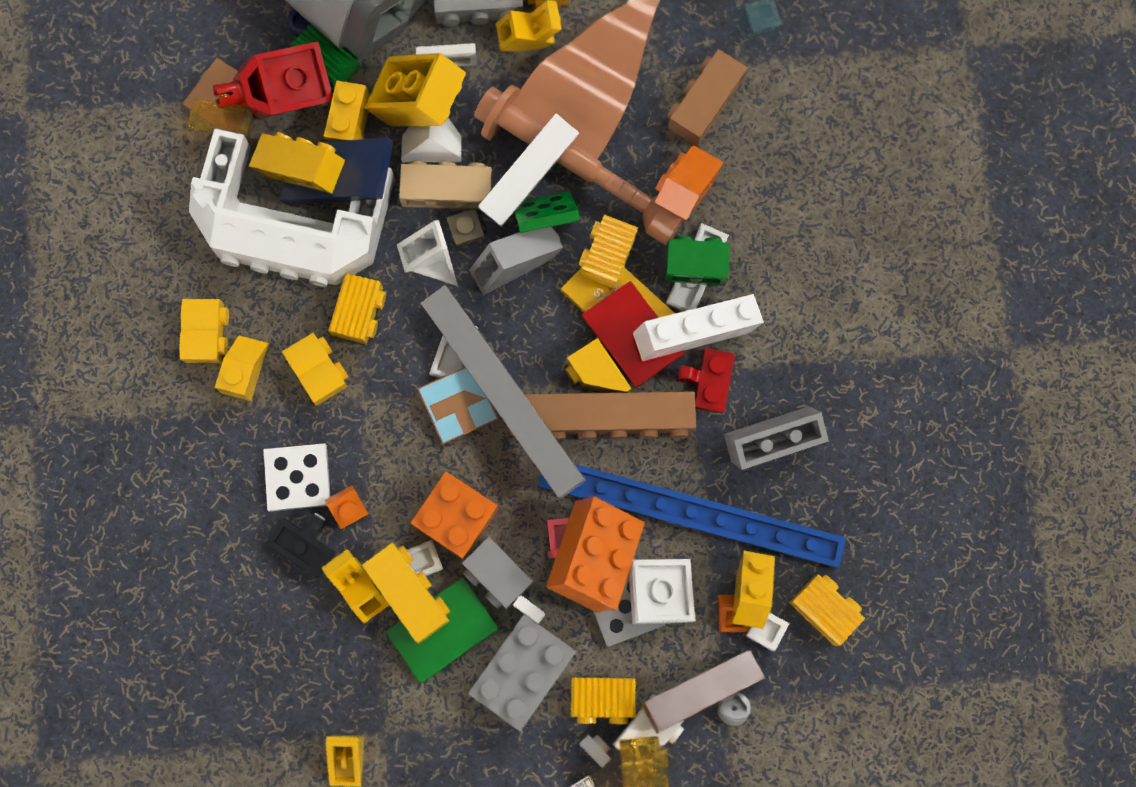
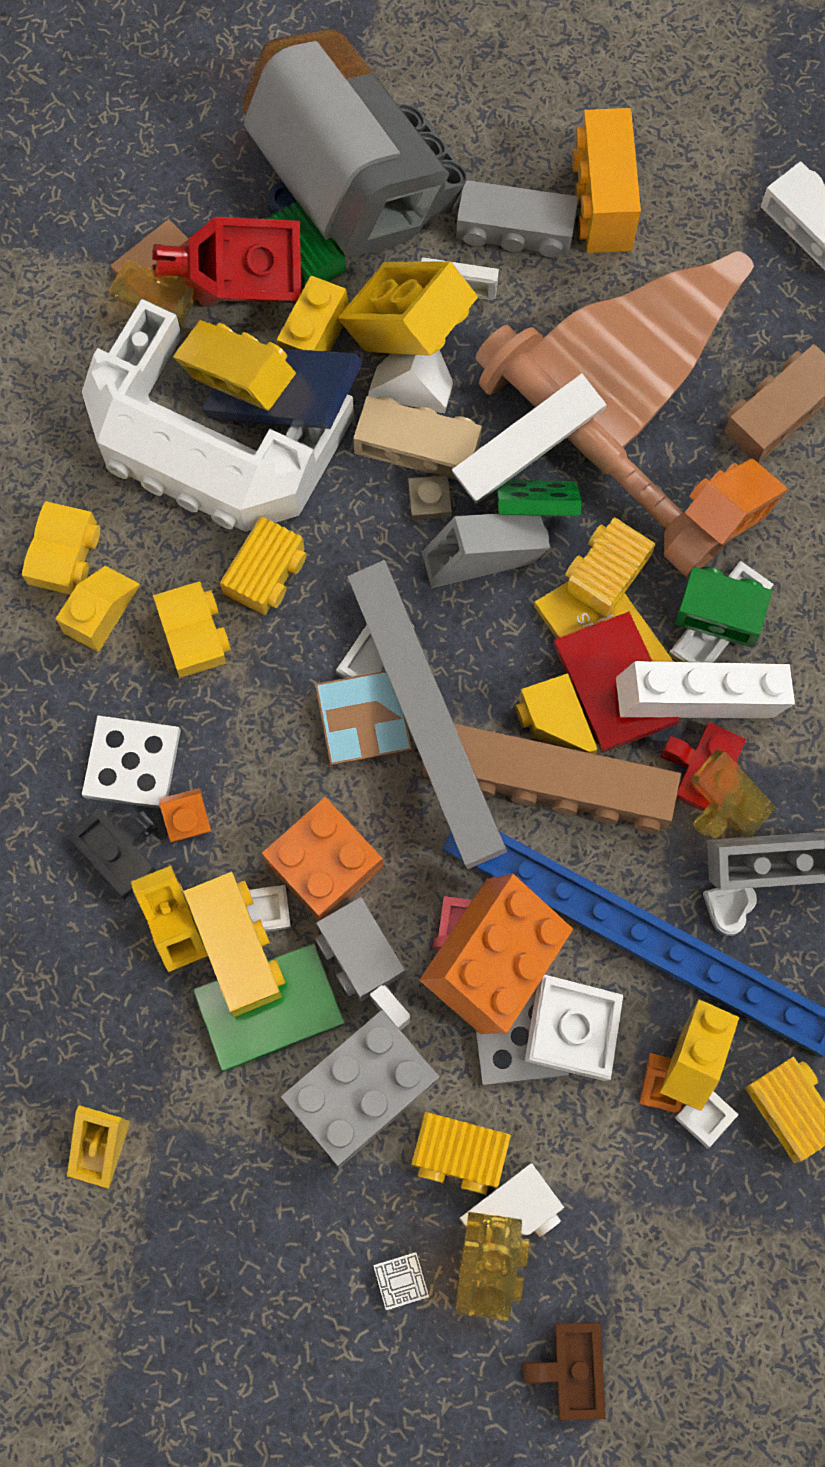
camera: 20 degrees right, 5 degrees down
(427, 254) = (372, 518): white slope -> none
(529, 31) = (573, 271): yellow brick -> none
(596, 749) = (435, 1217): light grey plate -> none
(702, 691) = (598, 1176): tile -> none
(733, 399) = (731, 798): none -> clear yellow plate
(734, 709) = (635, 1212): light grey tile -> none
(750, 479) = (729, 908): none -> white tile

